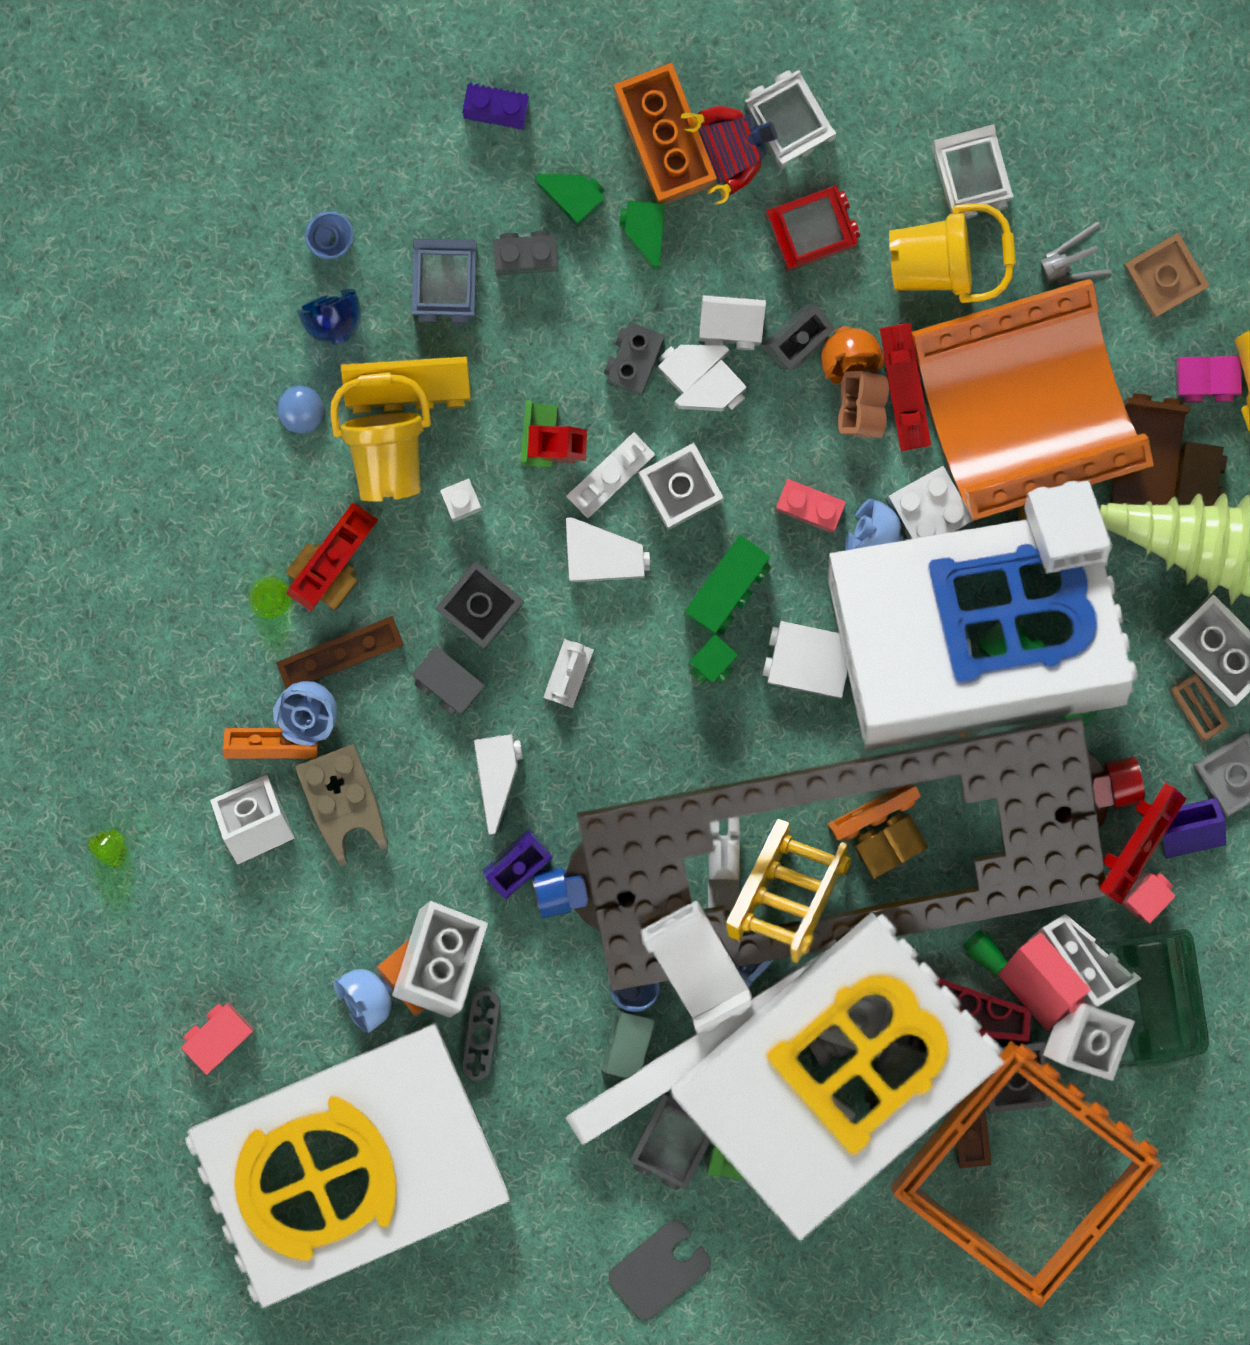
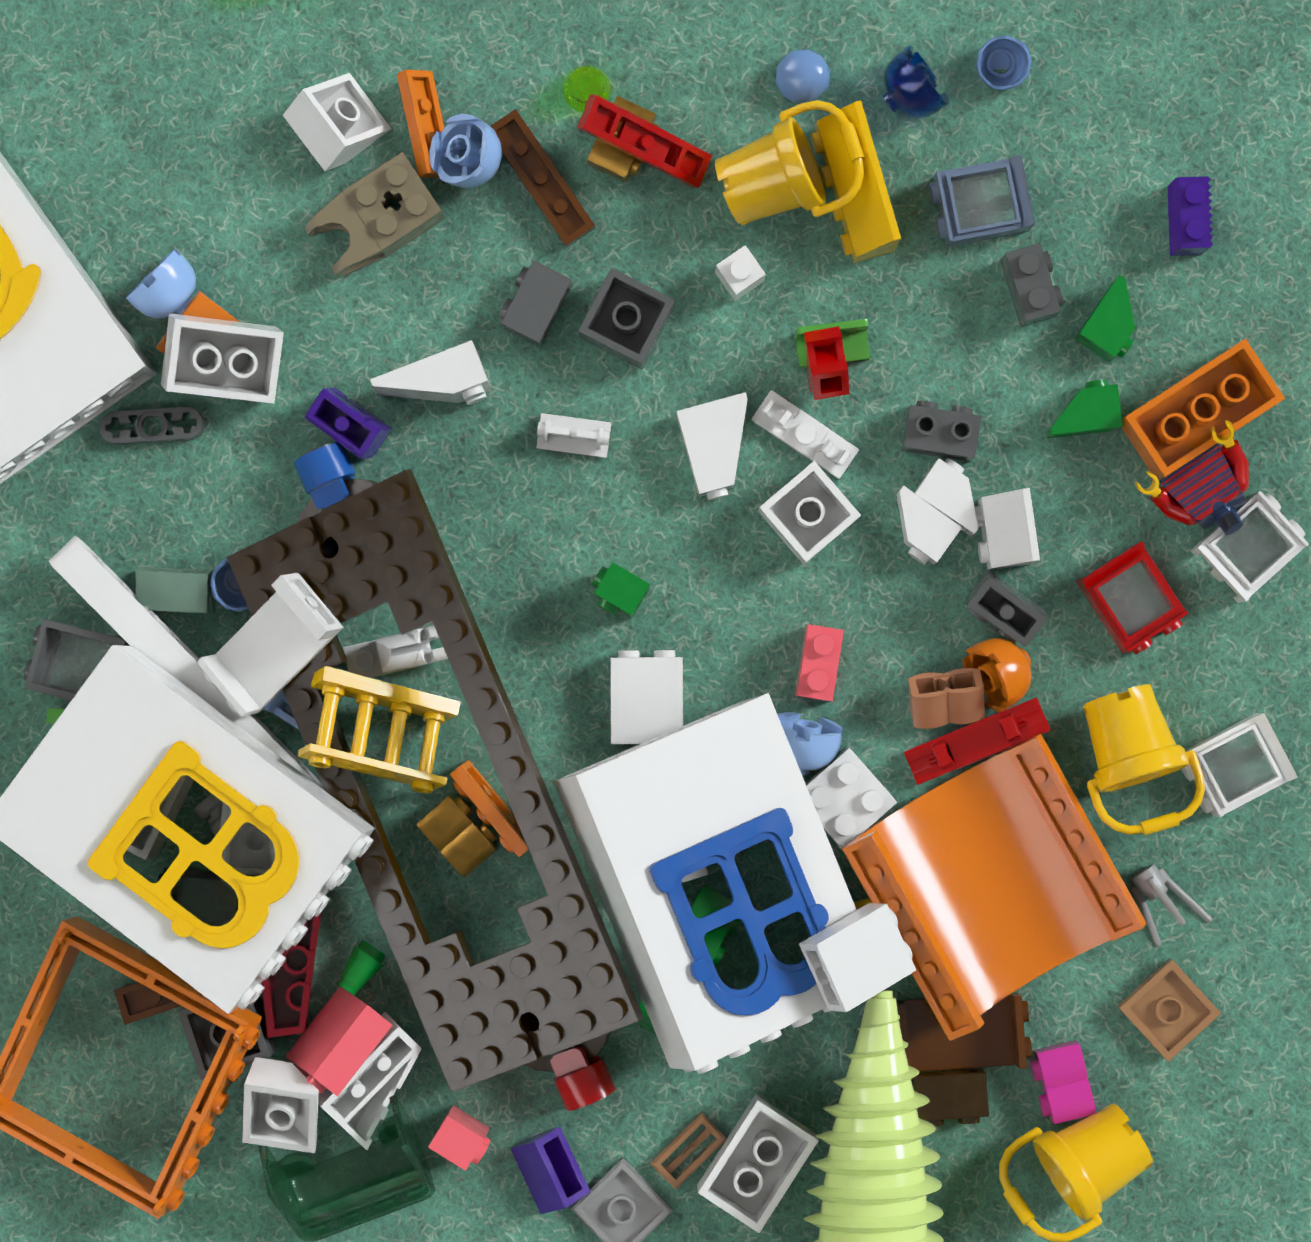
camera: 80 degrees right, 0 degrees up
(217, 1037) = (87, 136): coral brick -> none
(728, 586) = (707, 589): green brick -> none
(1142, 844) = (517, 1119): red hinge -> none

